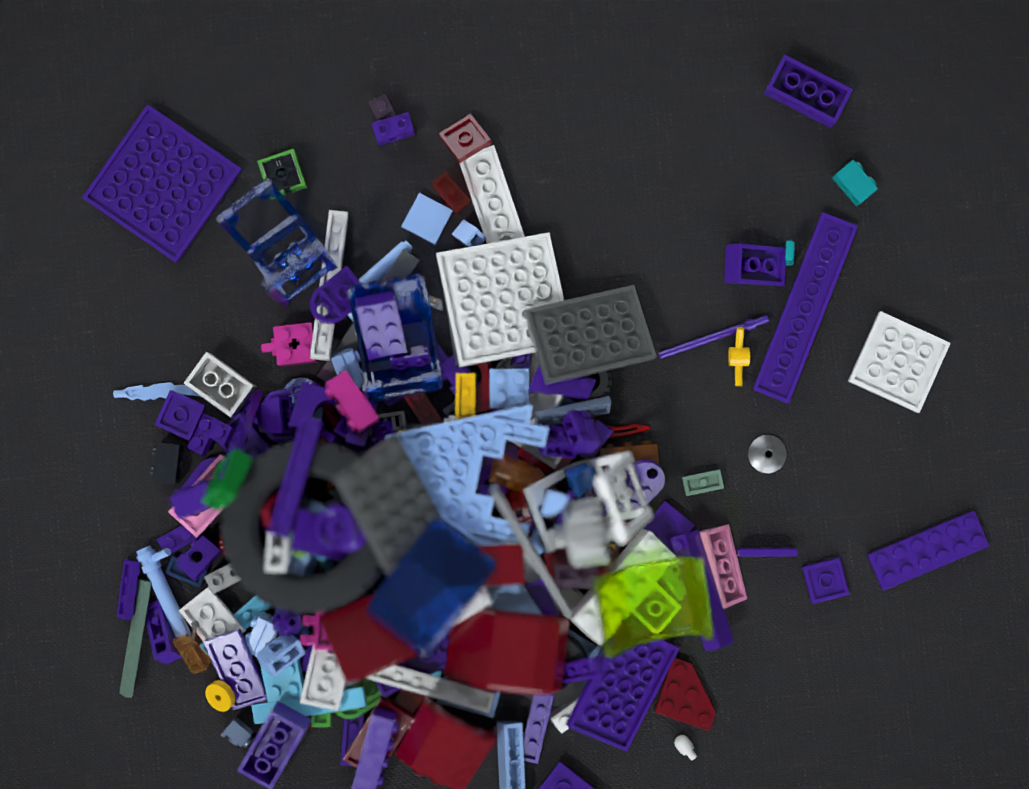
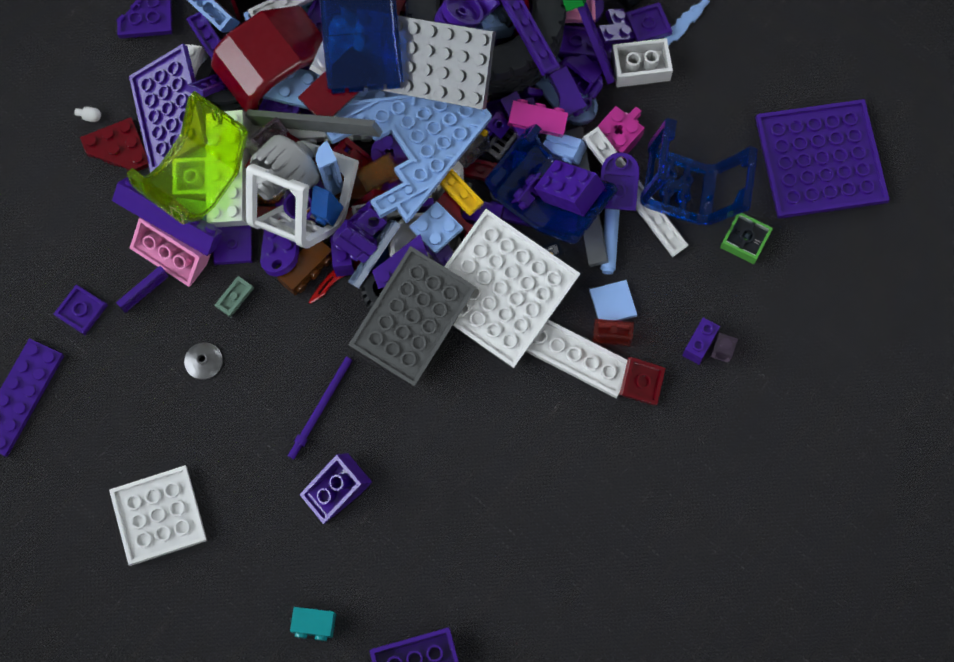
camera: 140 degrees right, 15 degrees down
(468, 234) = (570, 314): light blue brick -> none
(739, 356) = (287, 408): yellow piece -> none
(789, 252) = (316, 516): teal tile -> none
(805, 308) = (268, 492): dark purple plate -> none

